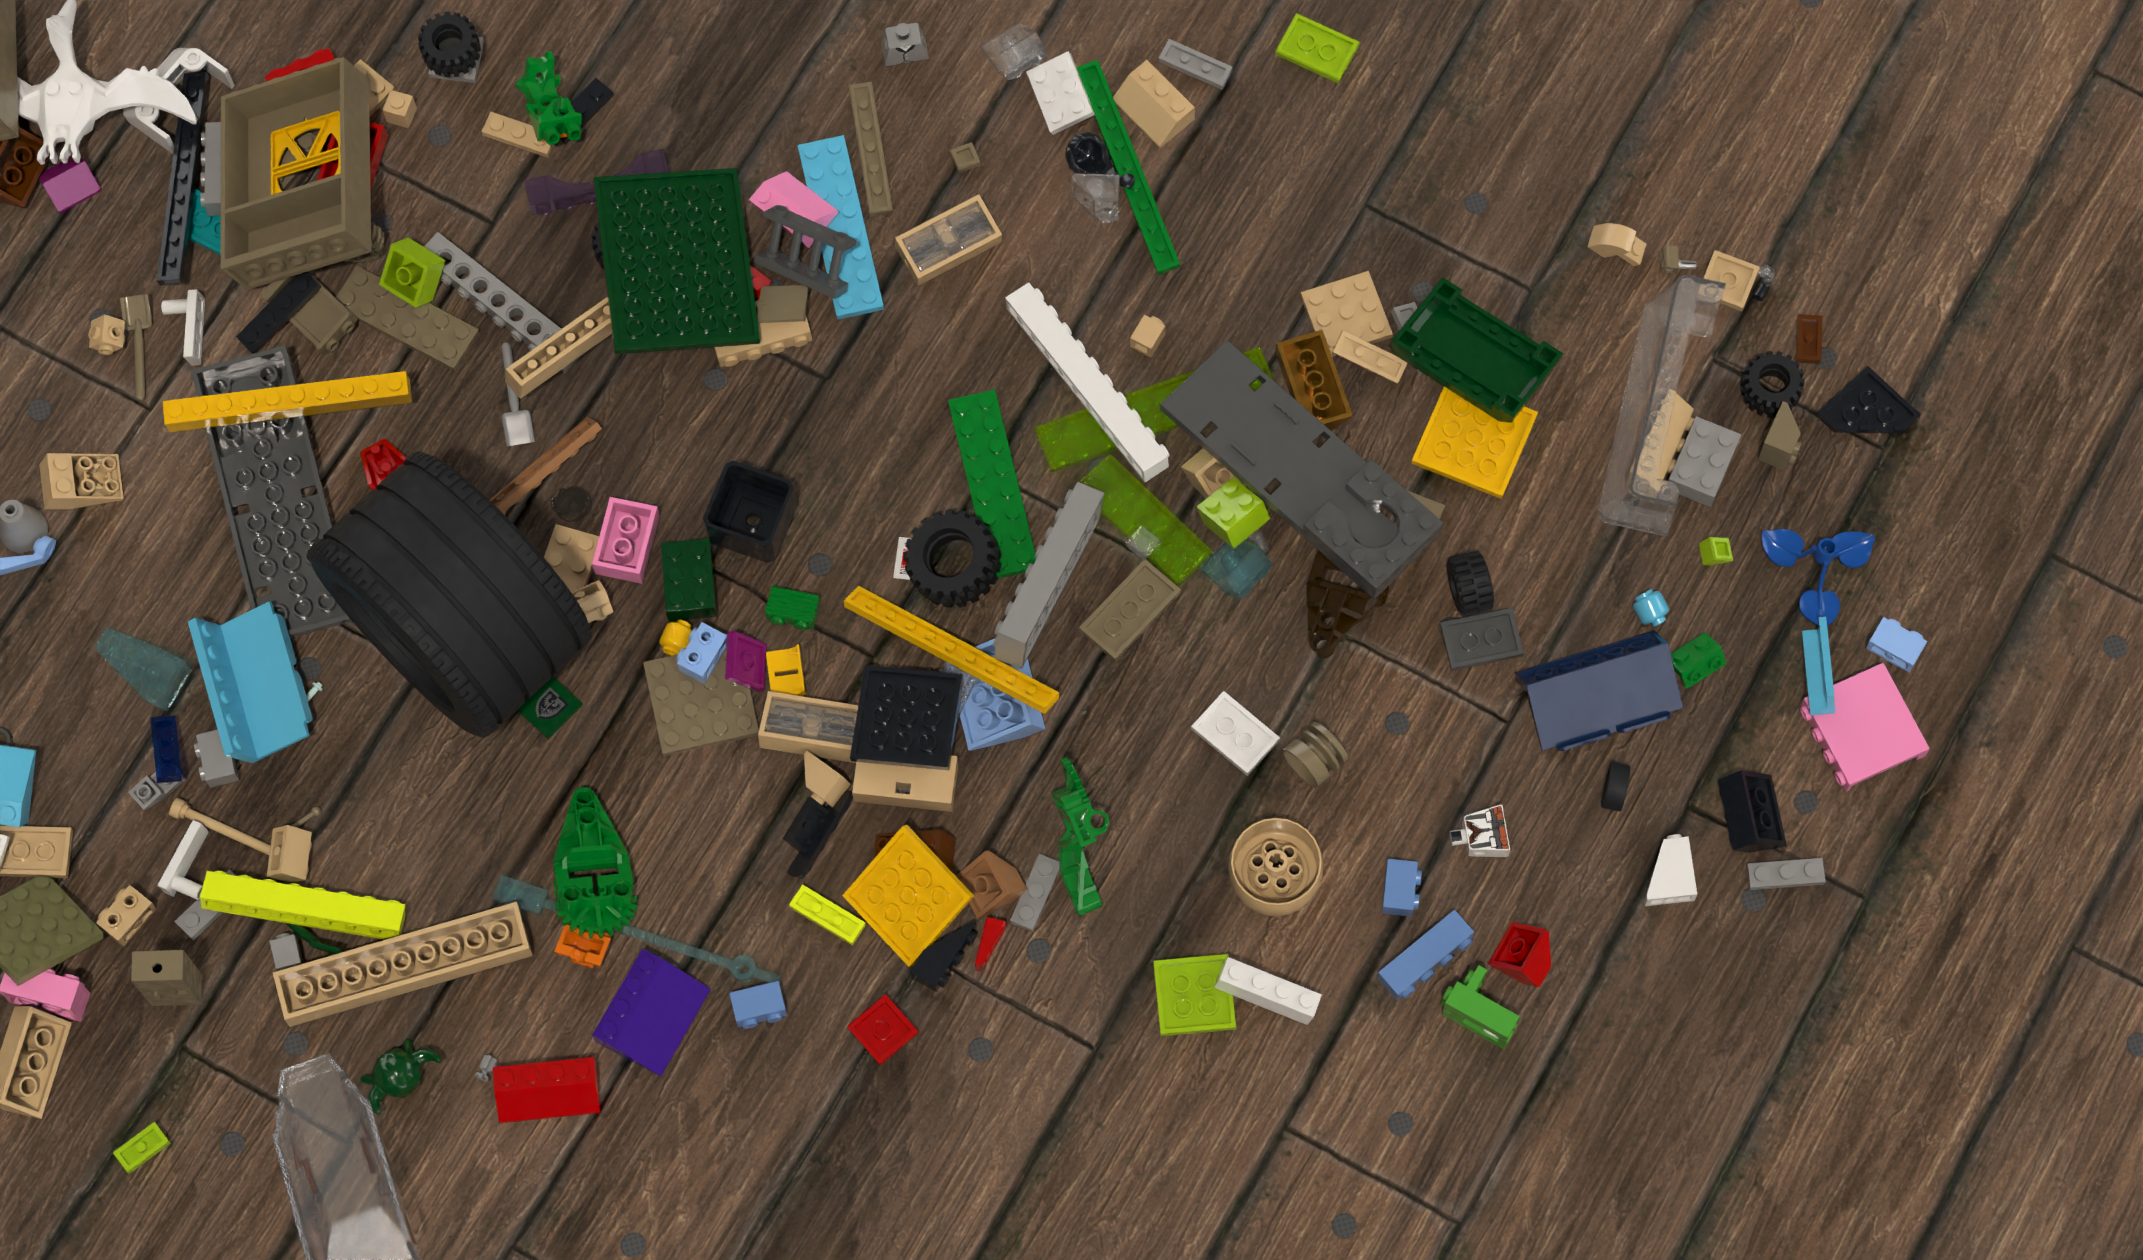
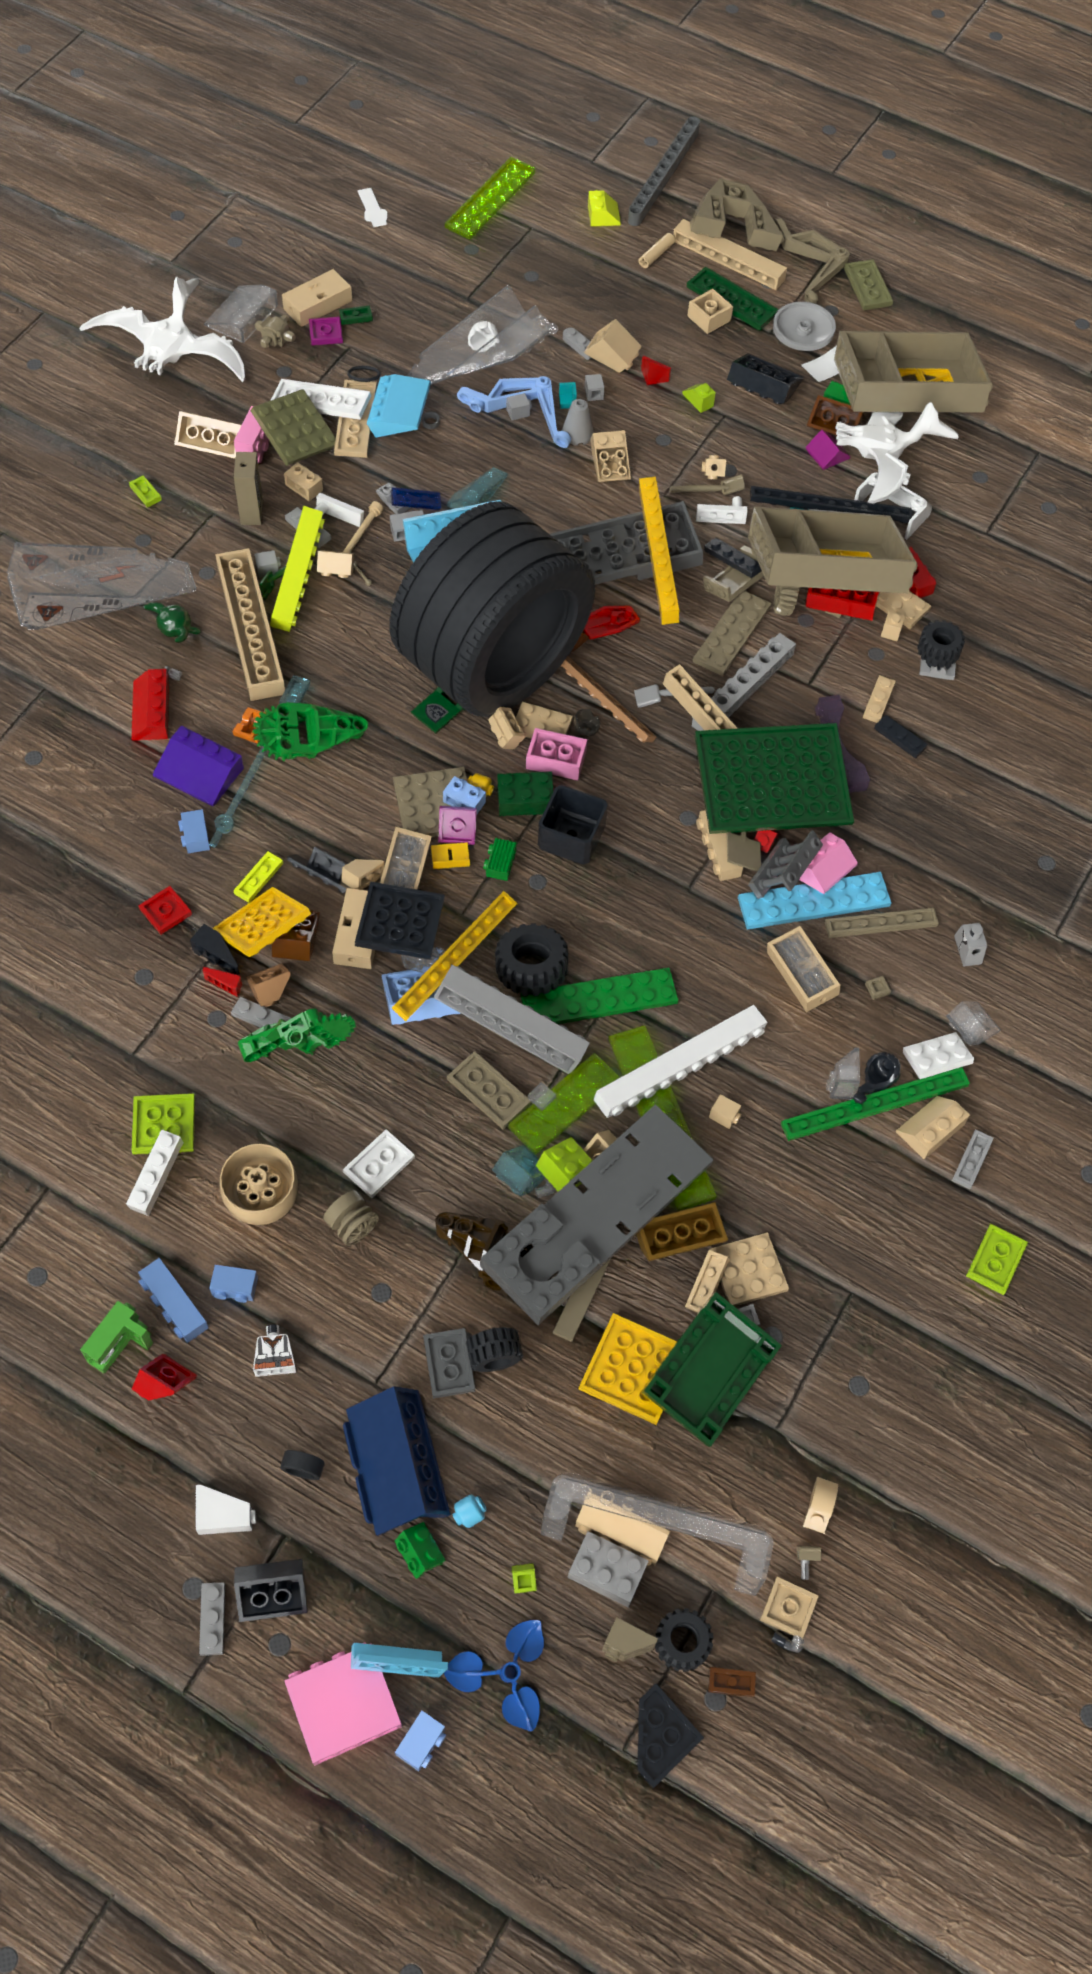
camera: 85 degrees right, 10 degrees down
(412, 272) = (763, 627): lime brick -> none
(540, 91) = (888, 706): green hips -> none

